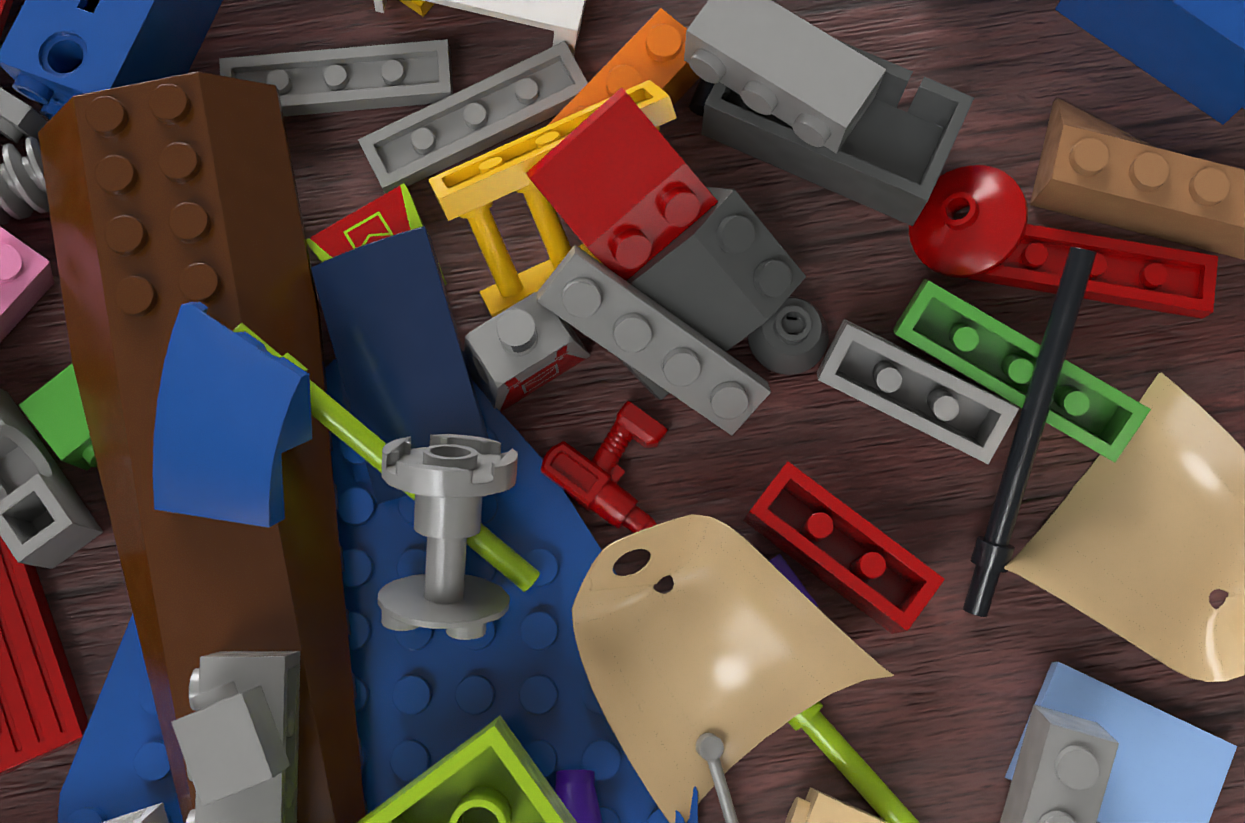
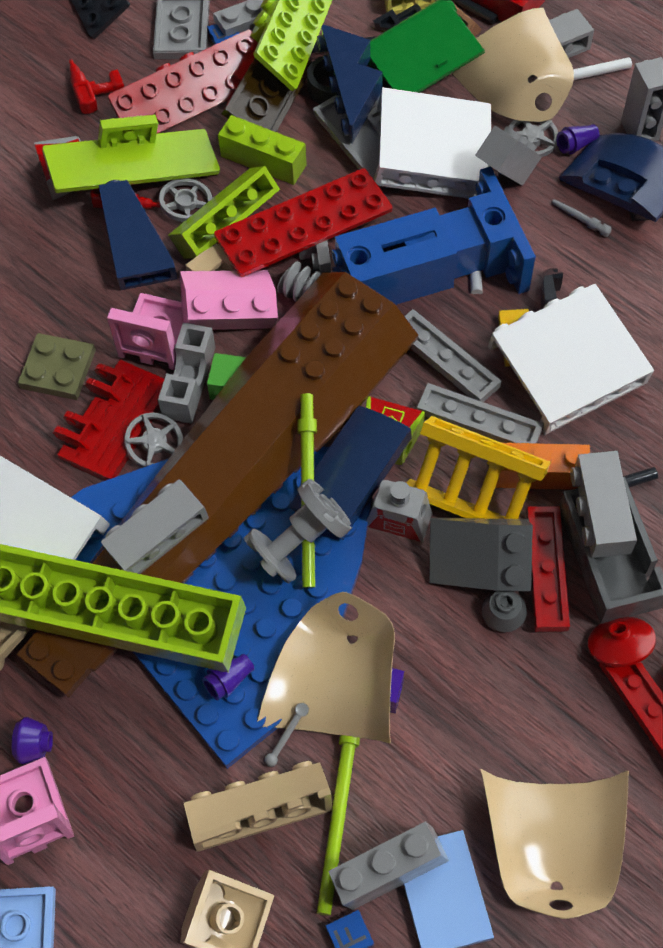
camera: 50 degrees right, 15 degrees down
(75, 616) = (153, 439): none -> light grey wheel
(224, 423) = (271, 417): blue slope -> none
(229, 742) = (159, 510): light grey brick -> none
(595, 480) = (372, 584): red piece -> none
(621, 186) = (493, 484): red slope -> none
(652, 340) = (446, 553): light grey plate -> none
(829, 258) = (548, 570): none -> red plate
(844, 550) = (429, 696): red brick -> none
(916, 391) = (524, 674): light grey brick -> none
(993, 549) = (488, 761): black bar -> none
(1005, 363) = (573, 709): bright green brick -> none

